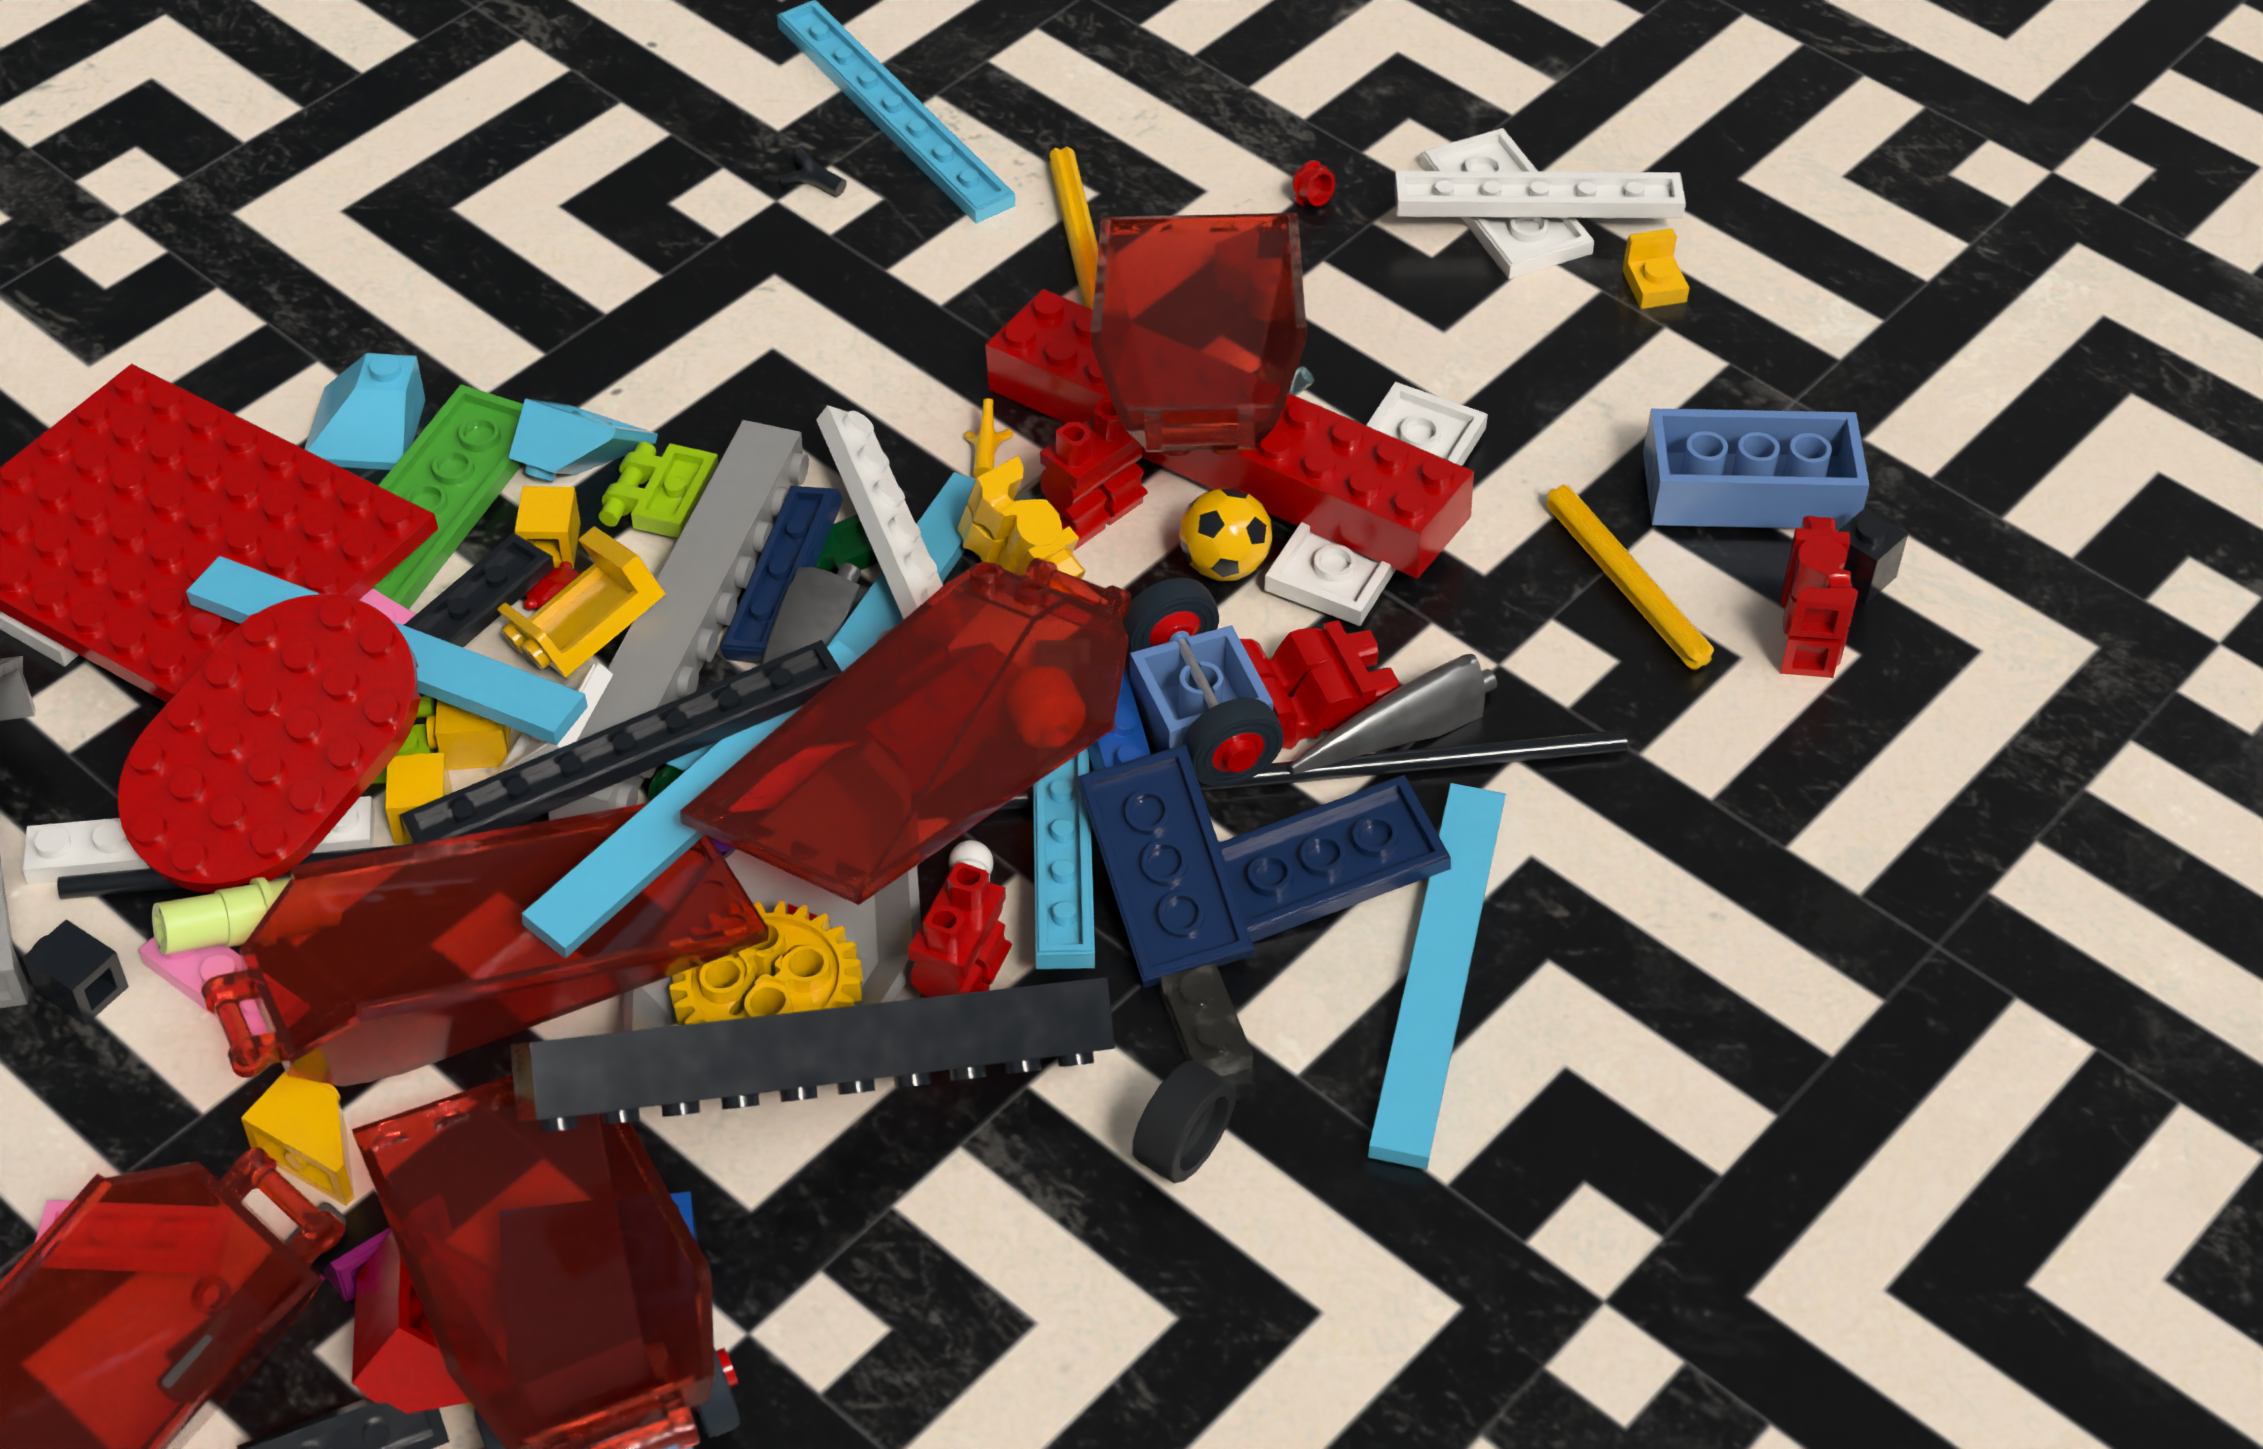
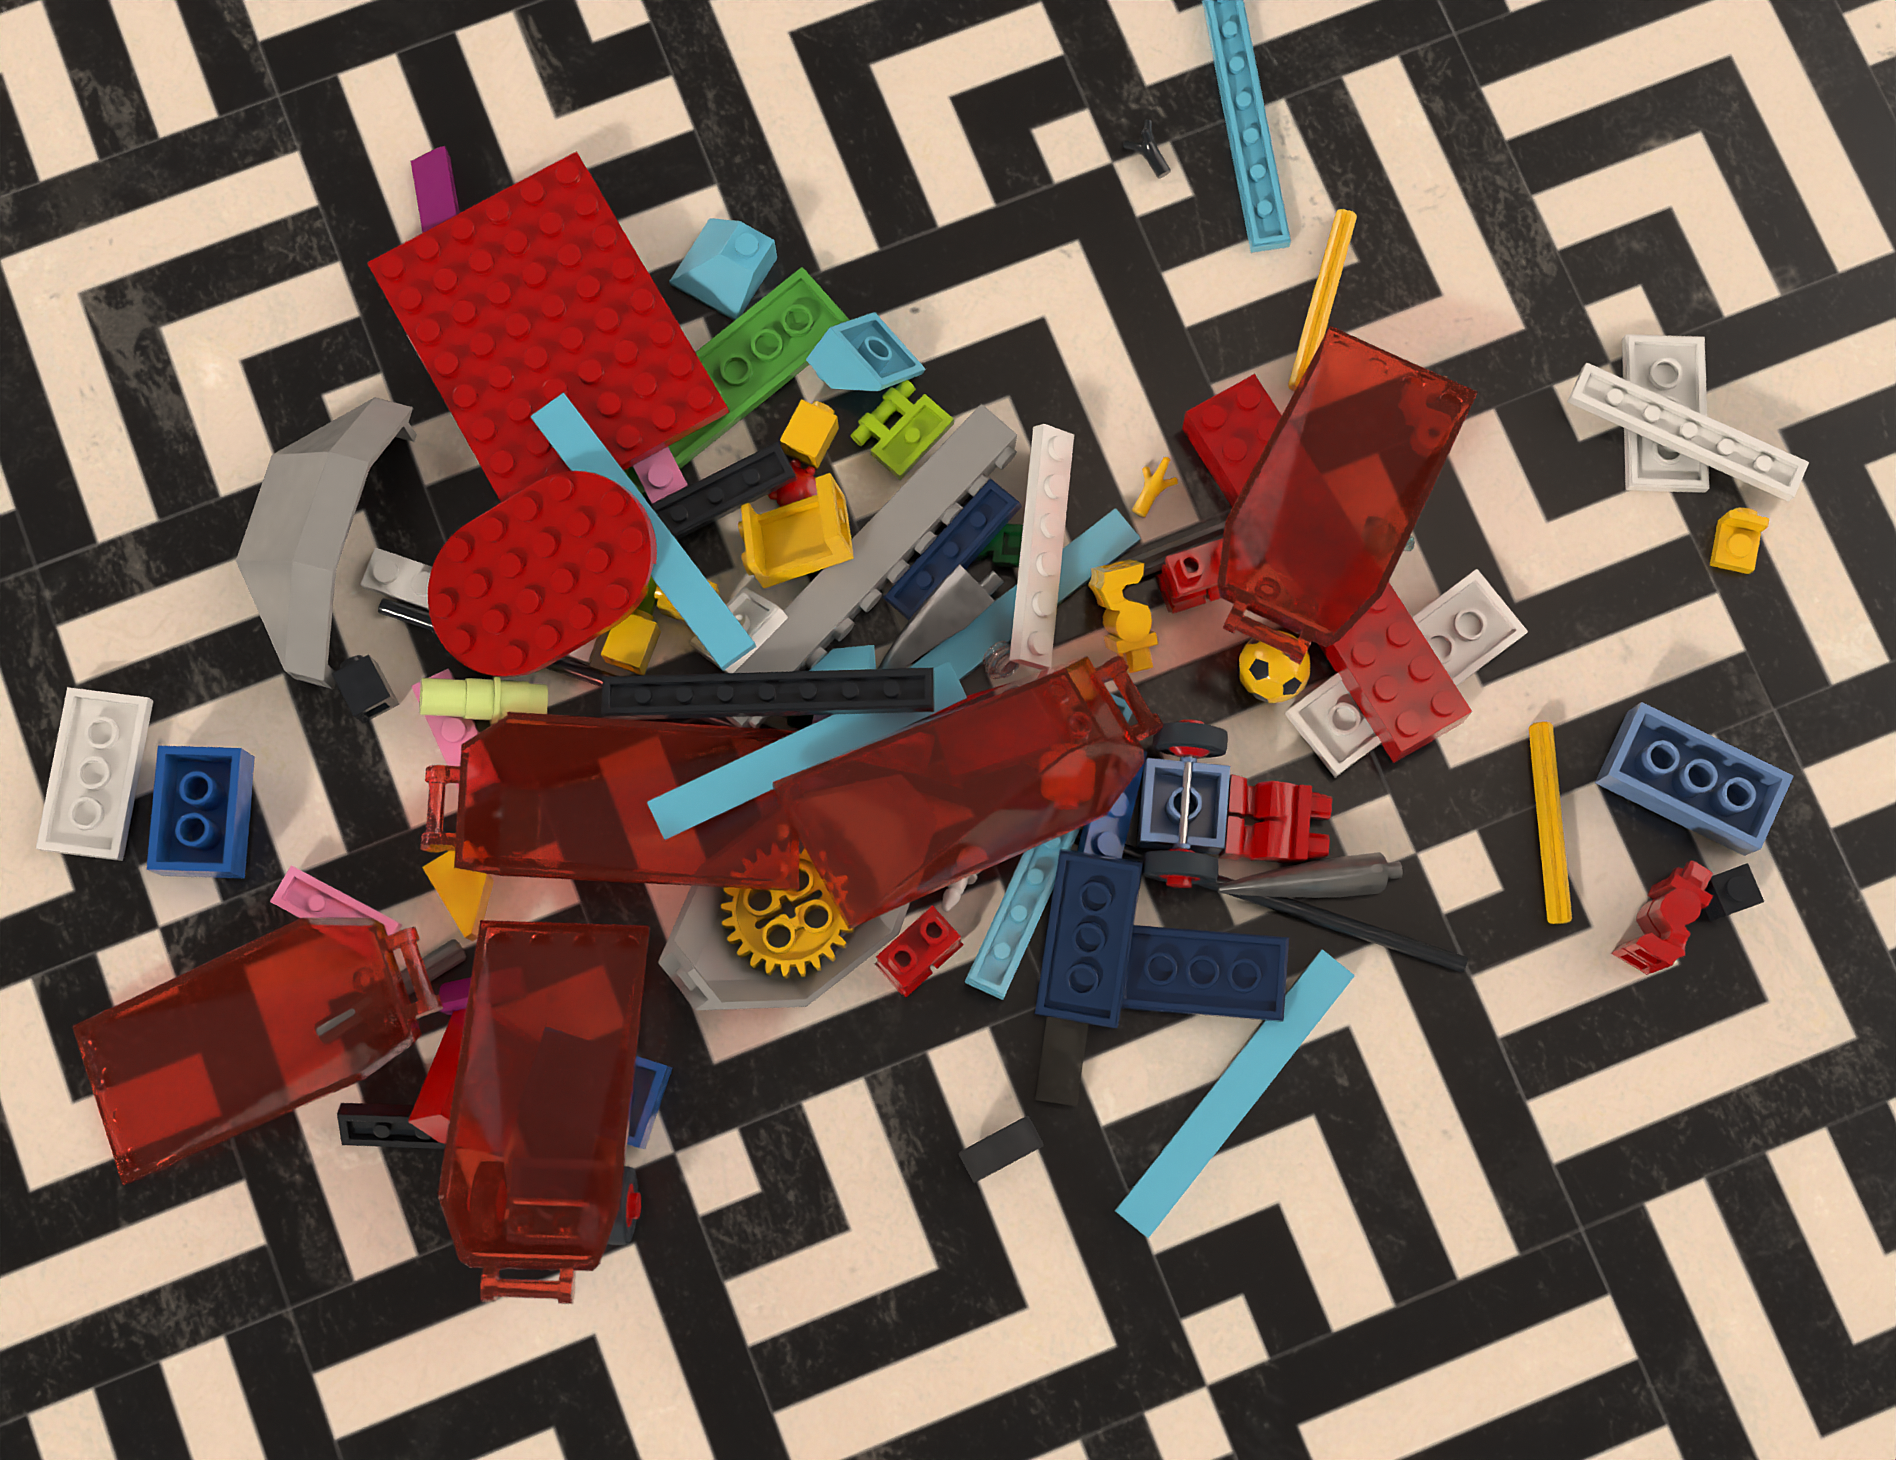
camera: 25 degrees right, 30 degrees up
(808, 1049) = (779, 1014): black brick -> none
(1313, 184) = (1523, 332): red plate -> none

